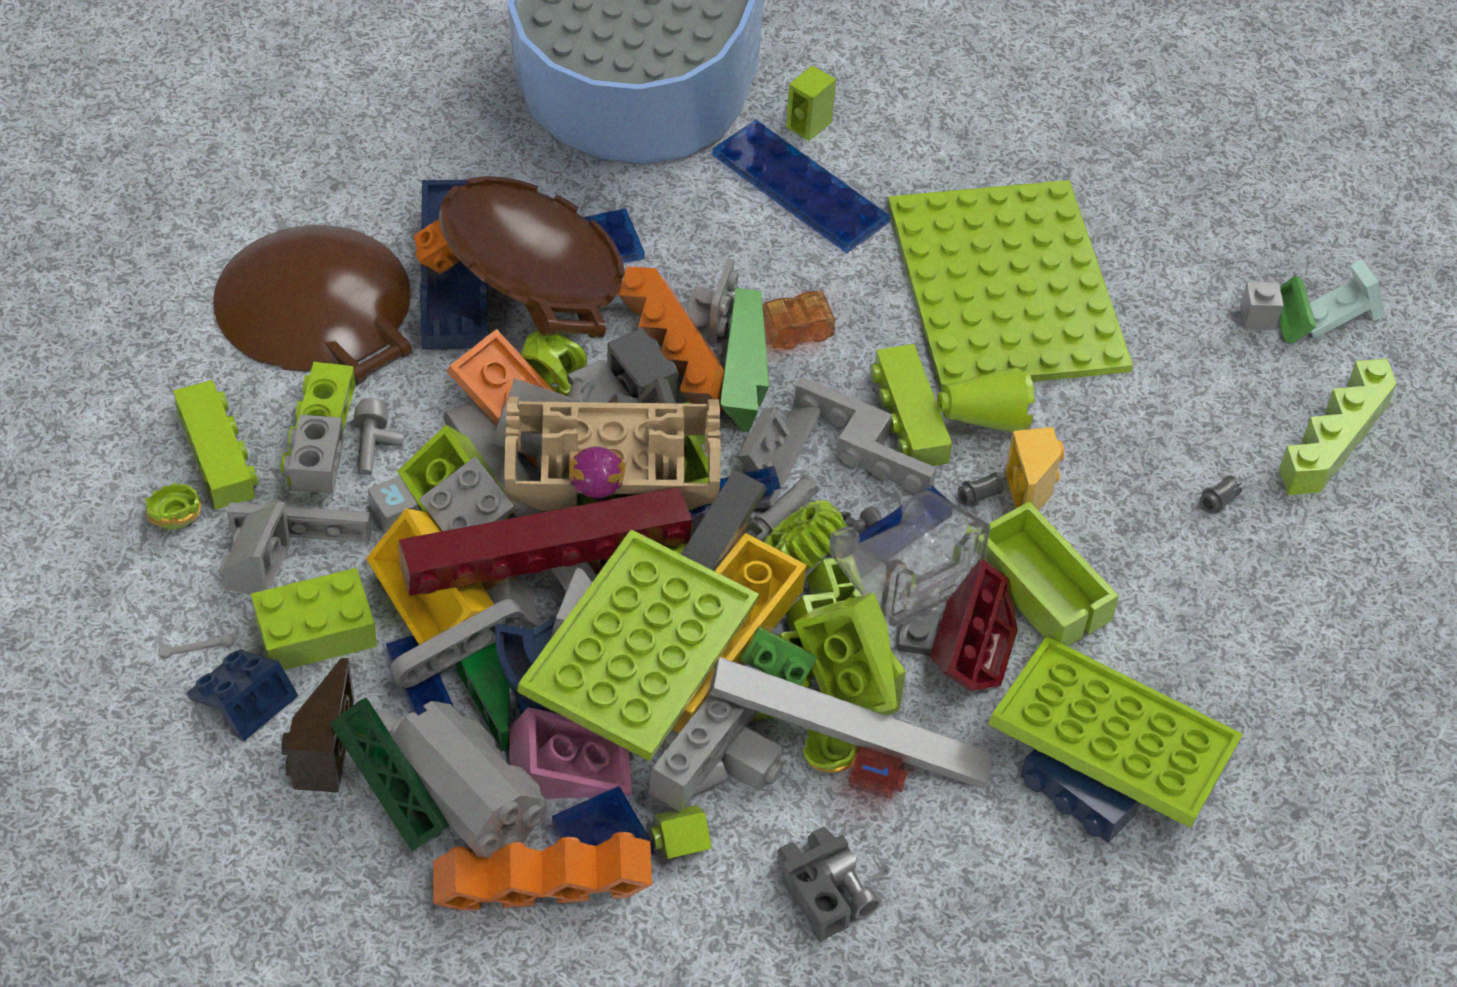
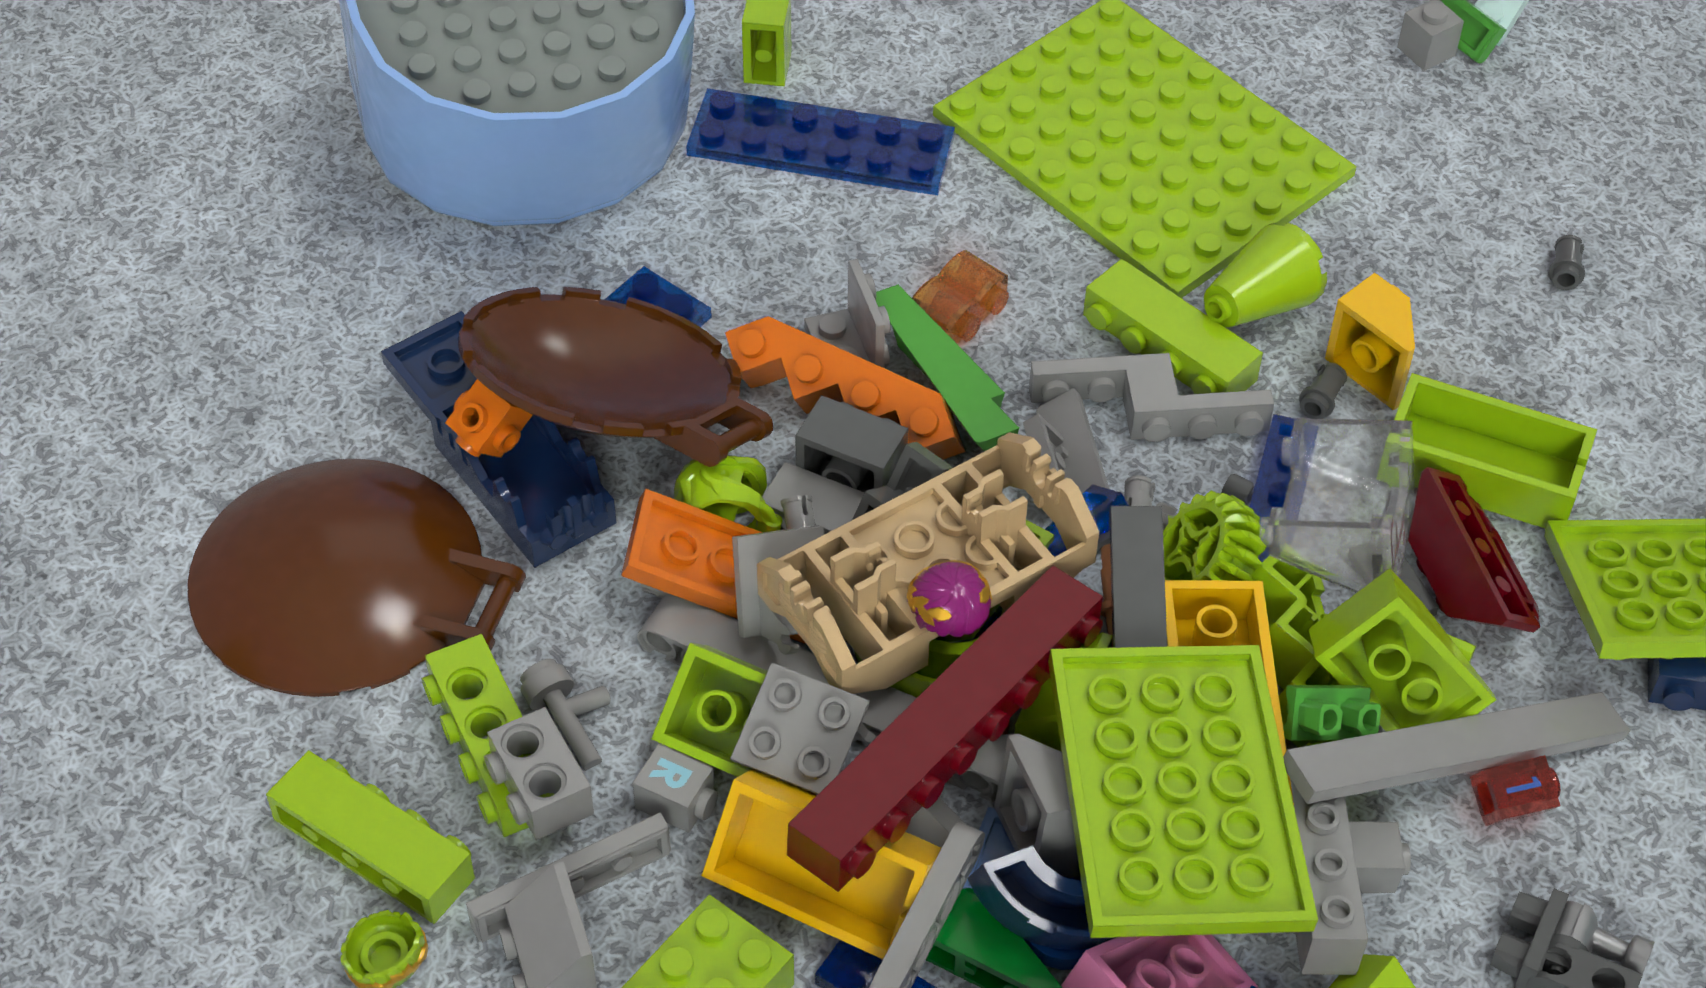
camera: 30 degrees left, 0 degrees up
(836, 753) = (1448, 797): lime hair -> none
(1335, 435) = (1625, 124): lime brick -> none

